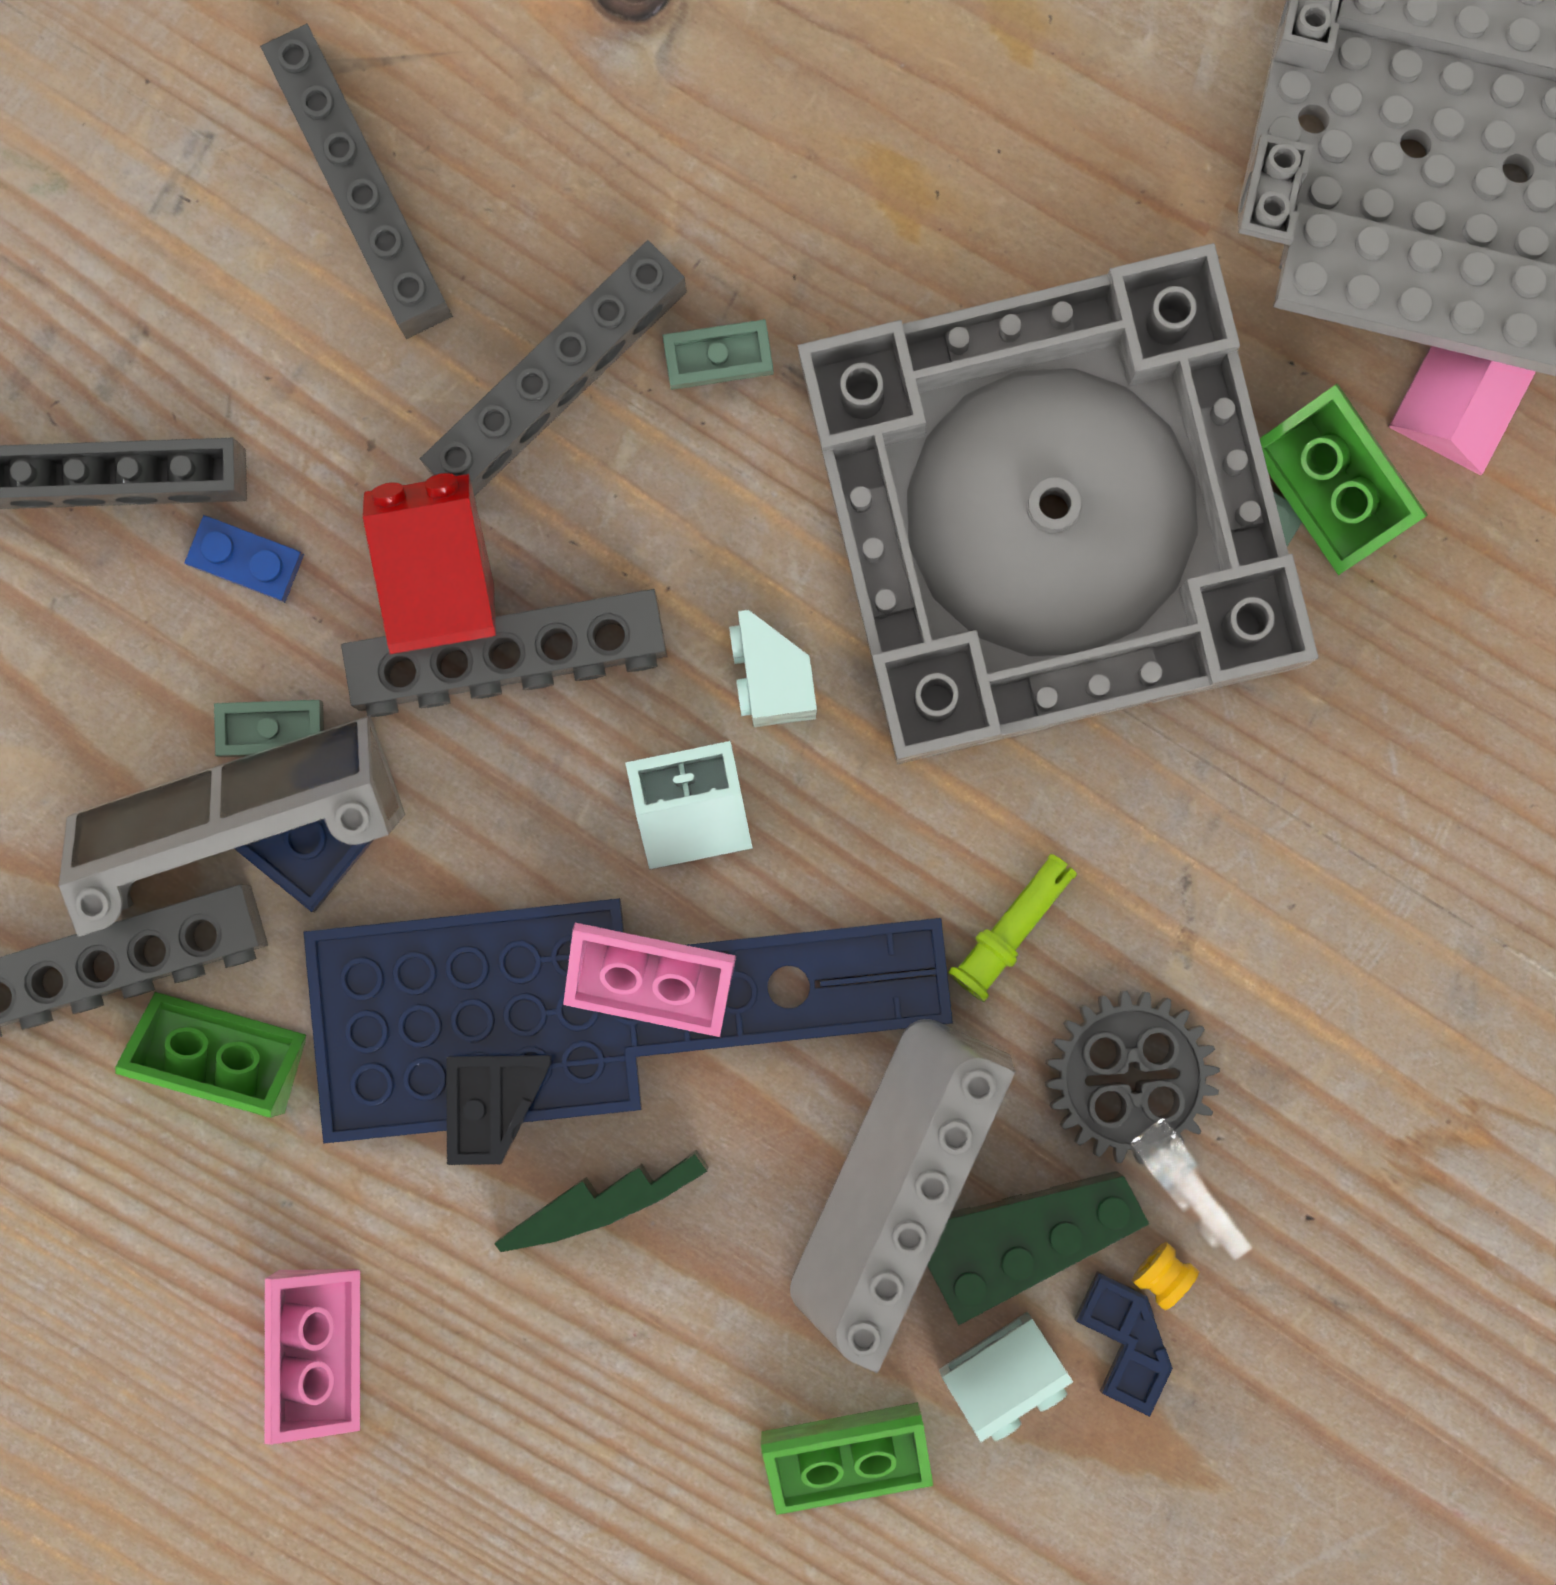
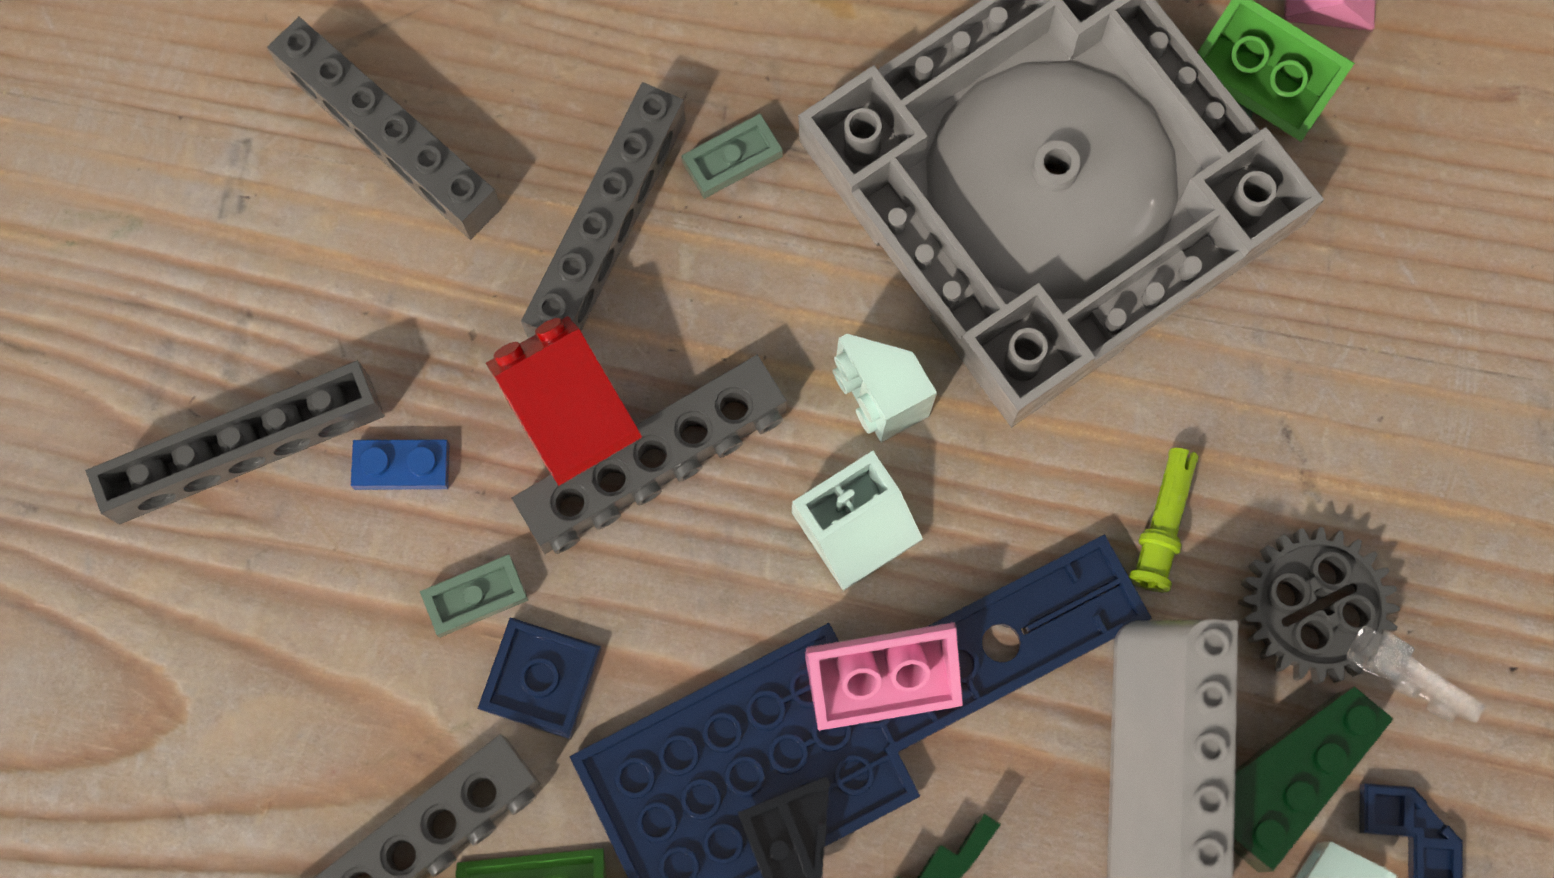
camera: 25 degrees left, 10 degrees down
(316, 777) = (384, 734): windscreen -> none
(1165, 1276) = (1422, 762): yellow wheel -> none

